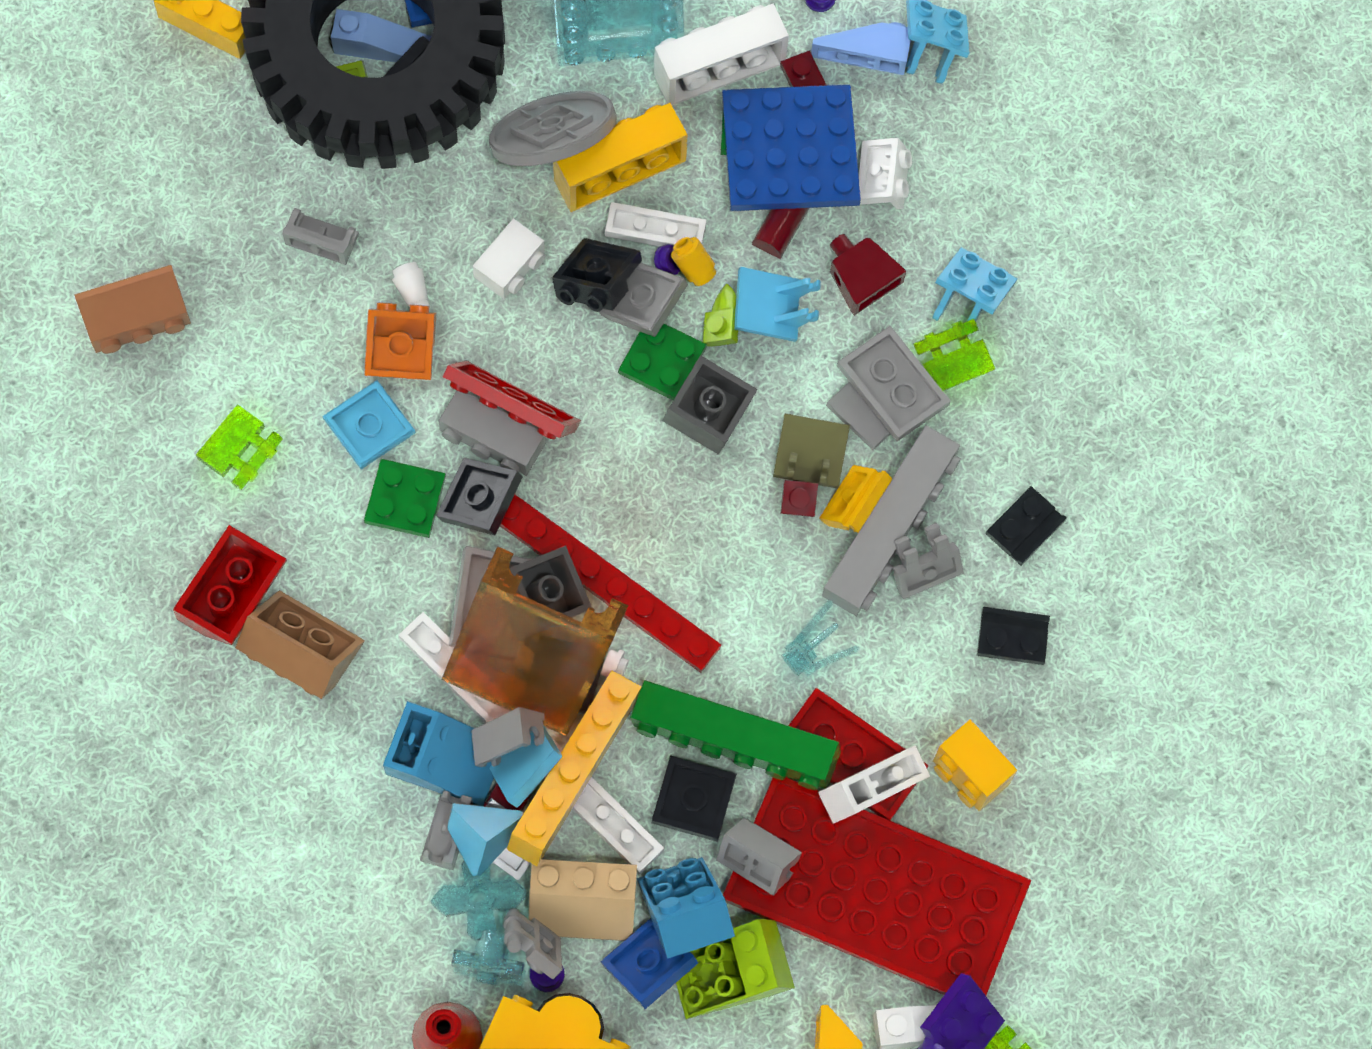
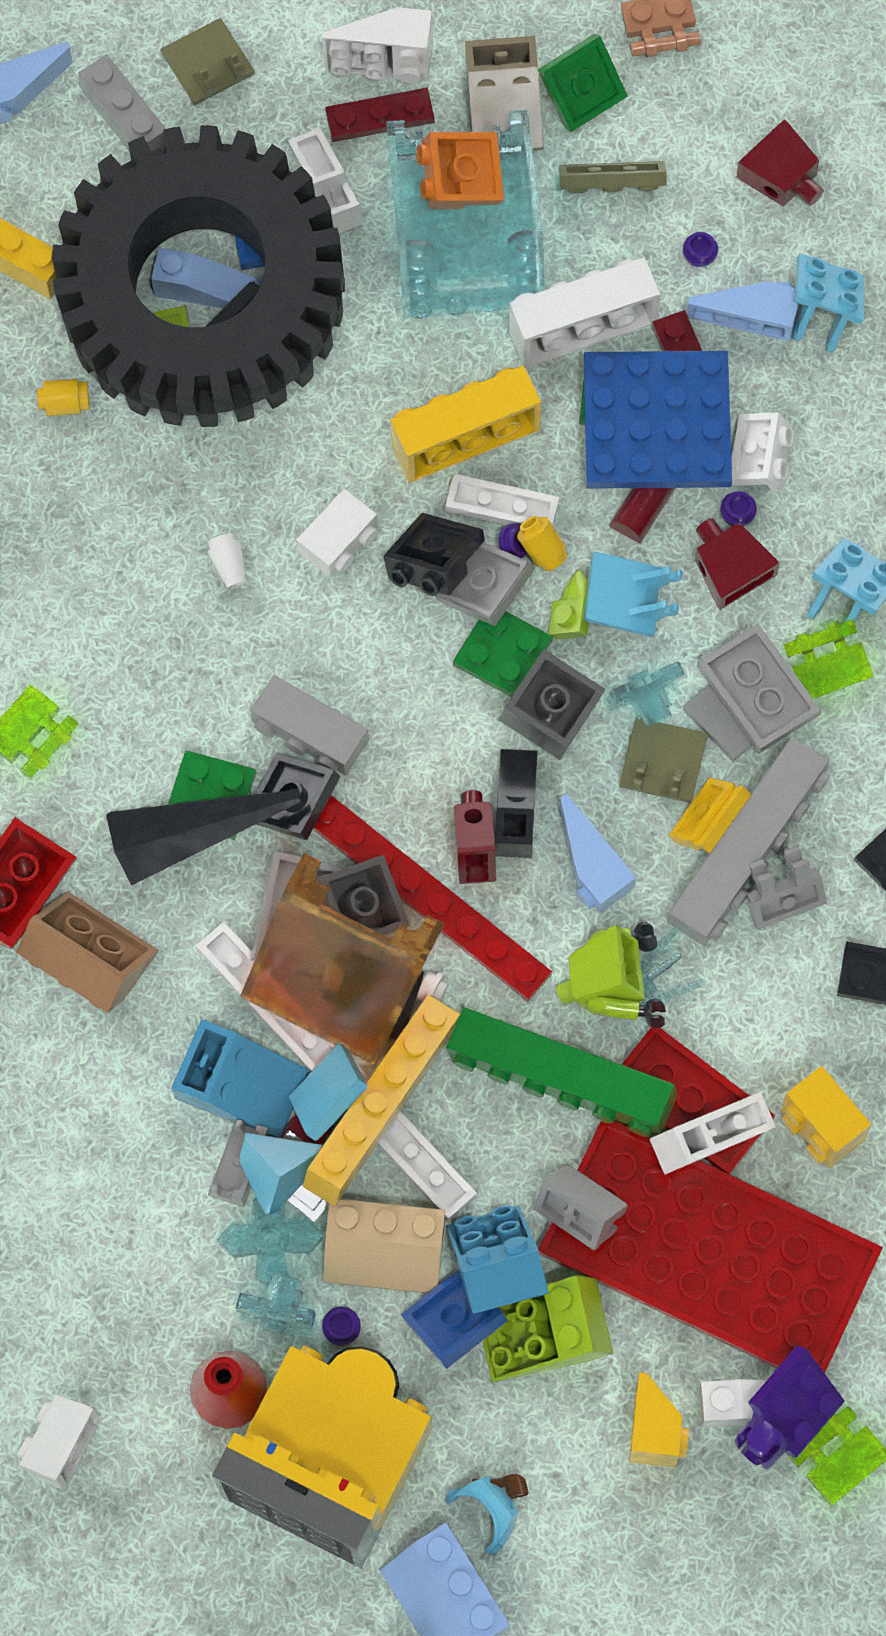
camera: 10 degrees right, 0 degrees up
(256, 145) = (63, 397): none -> yellow brick
(319, 237) = (129, 501): light grey hinge -> none
(364, 536) = (161, 836): none -> black wedge
(369, 424) = (174, 712): medium azure tile -> none
(400, 342) = (212, 621): orange plate -> none
(506, 735) = (308, 1060): light grey hinge -> none
(520, 404) = (342, 696): red plate -> none
(536, 940) = (333, 1290): light grey plate -> none
(552, 128) = (391, 389): light grey plate -> none
(646, 528) = (474, 839): none -> dark red torso
(681, 495) = (516, 803): none -> black slope
(693, 798) = (512, 1140): black plate -> none
(756, 548) = (596, 866): none -> light blue slope
(774, 647) = (609, 975): none -> lime torso
(794, 392) = (646, 694): none -> clear light blue plant
(799, 498) = (646, 812): dark red brick -> none
(866, 224) = (738, 508): none -> dark purple plate

